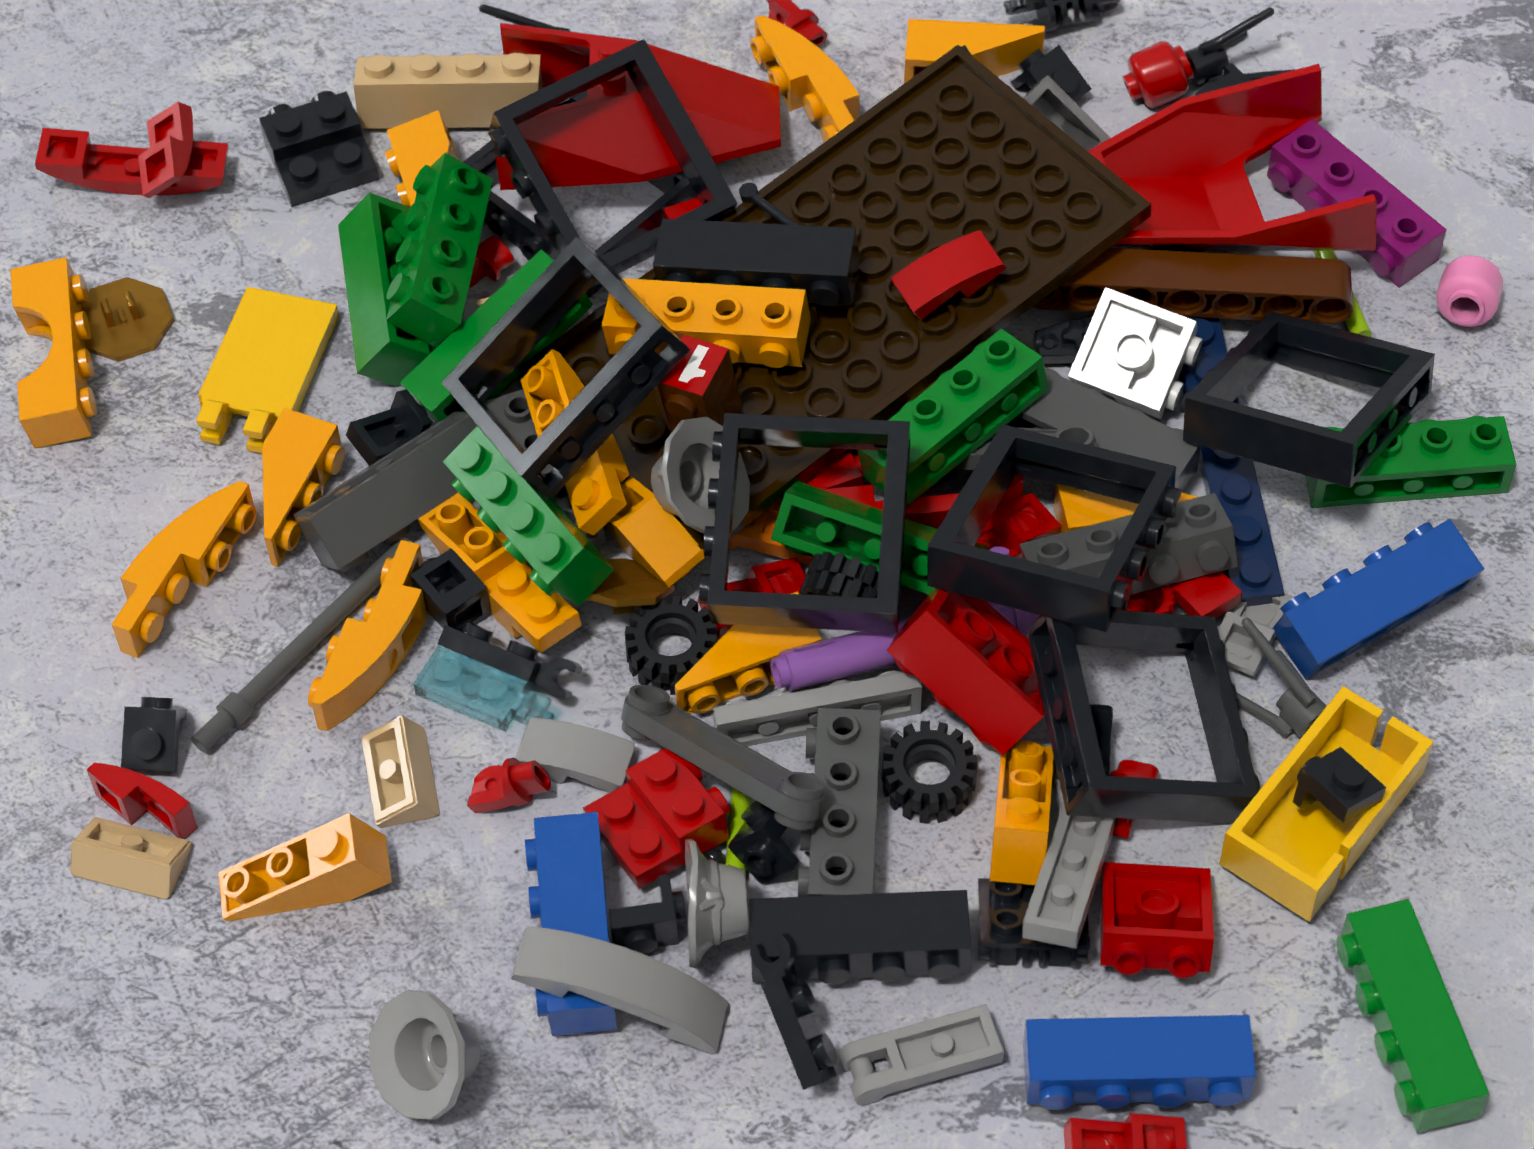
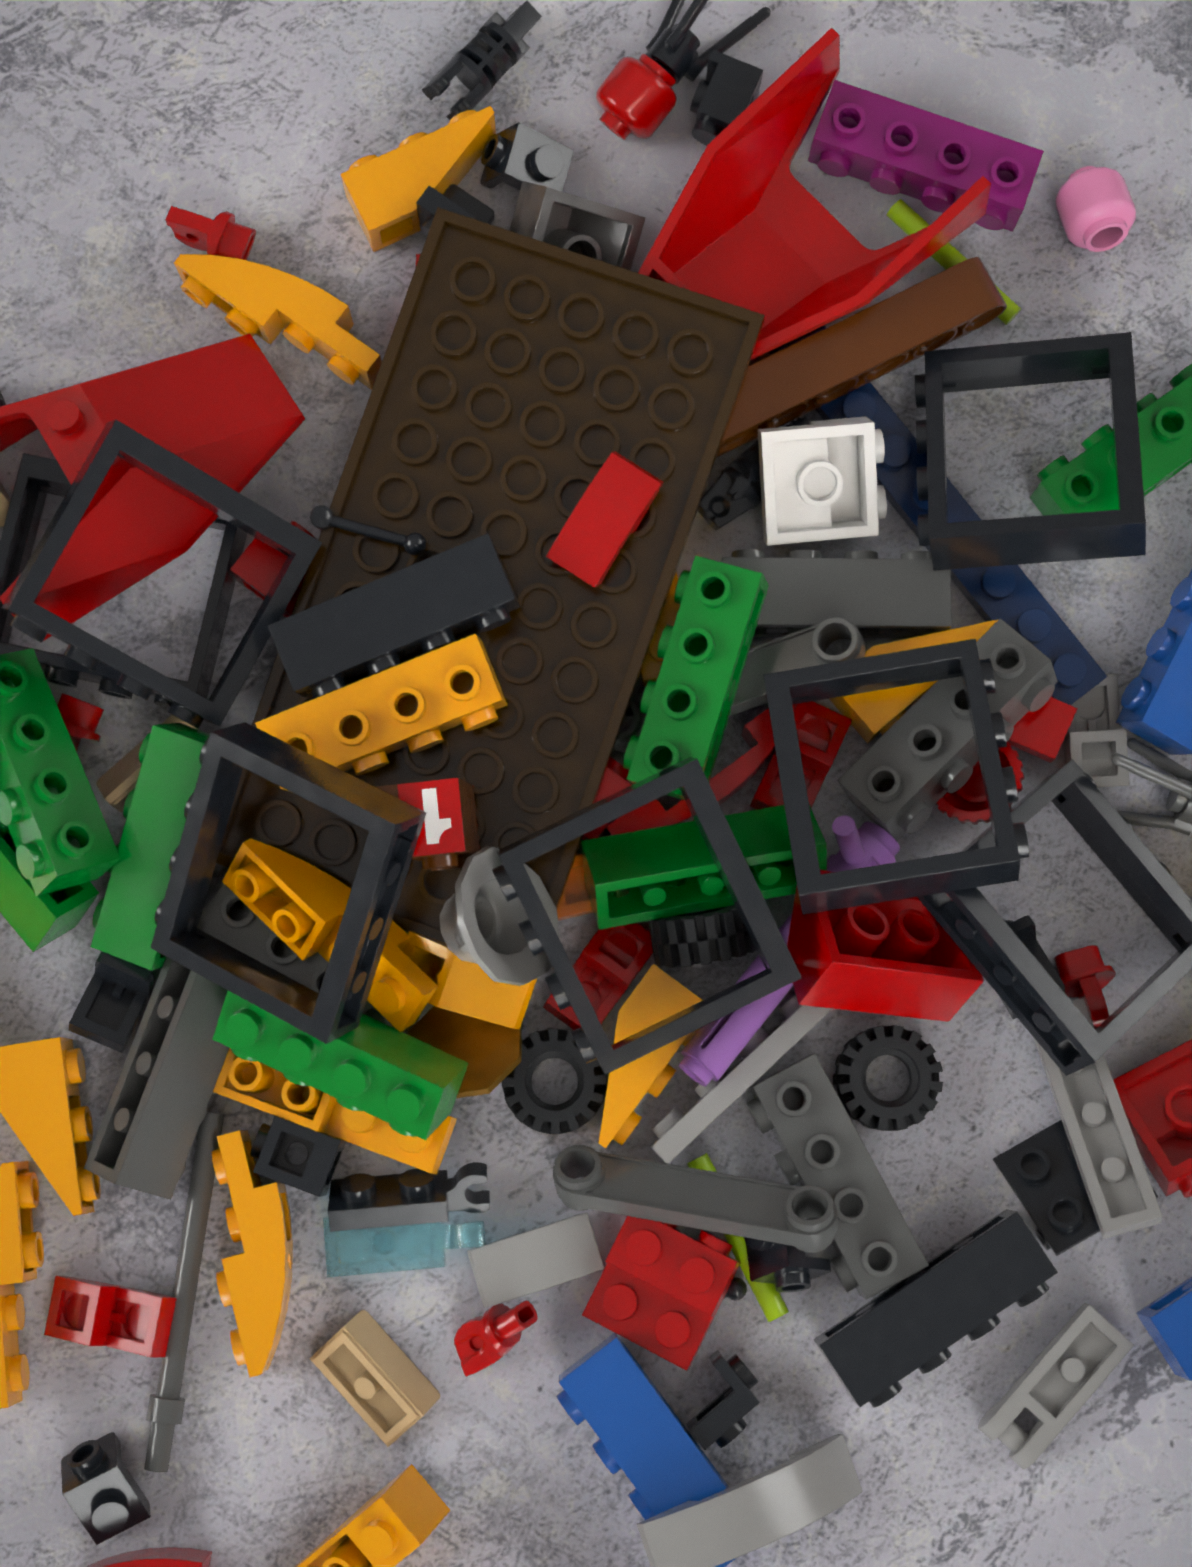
camera: 35 degrees left, 25 degrees up
(239, 630) = (110, 1316): none -> red slope
(716, 902) = (790, 1366): light grey hat -> none
(792, 1010) = (933, 1439): black plate -> none
(1022, 813) = (1005, 1078): light orange slope -> none

